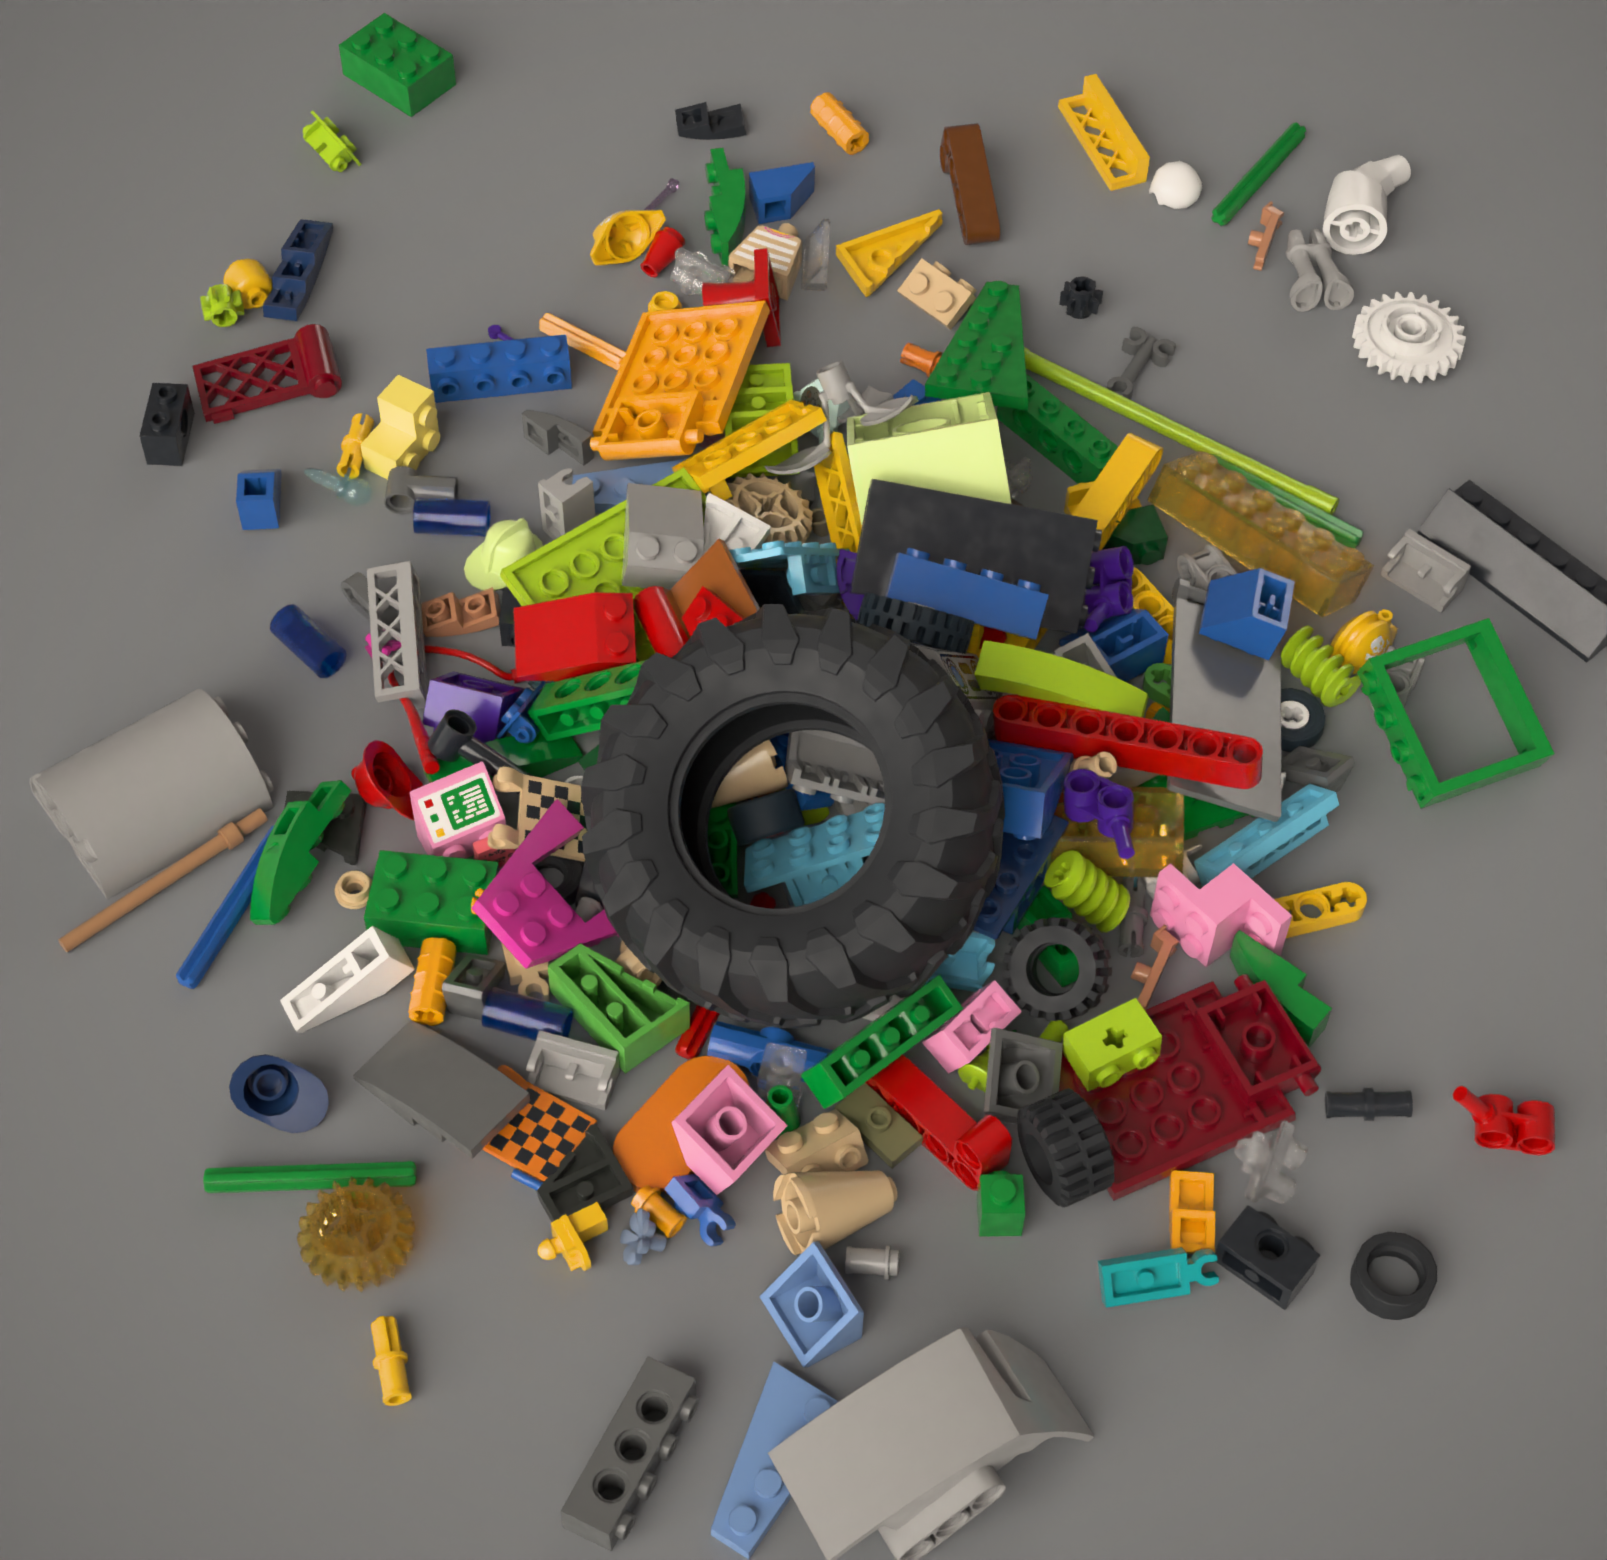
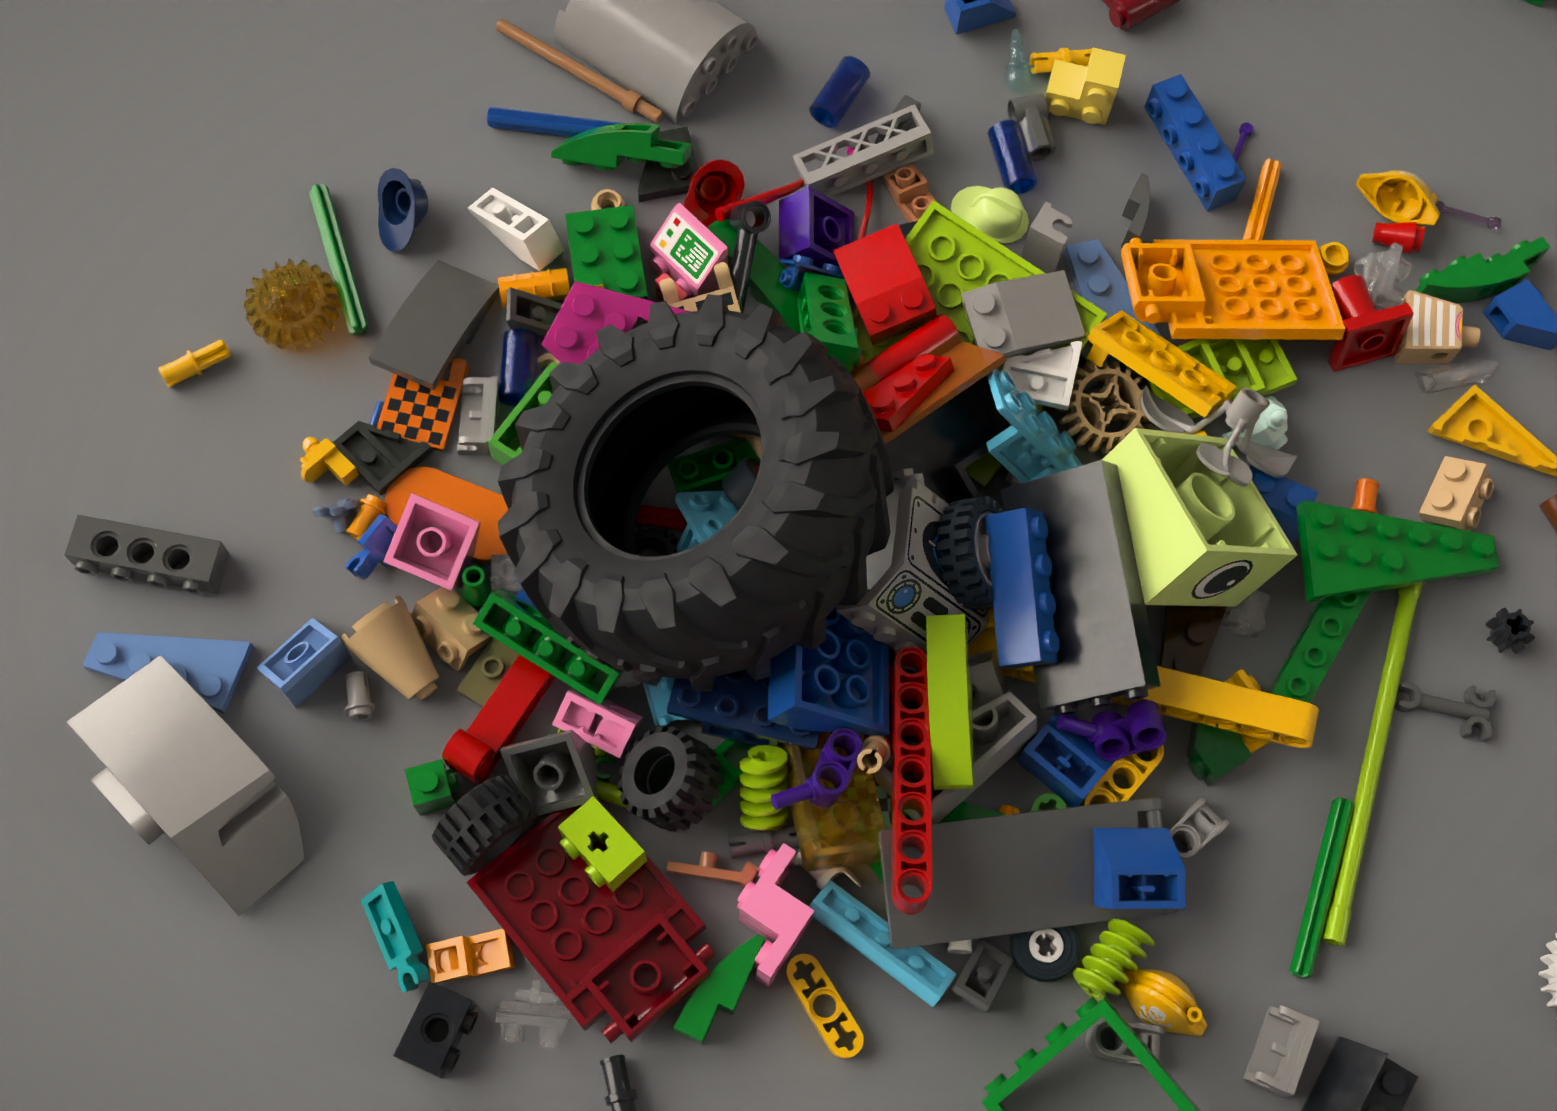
camera: 70 degrees right, 15 degrees up
(1260, 531) = (1254, 869): clear yellow brick -> none

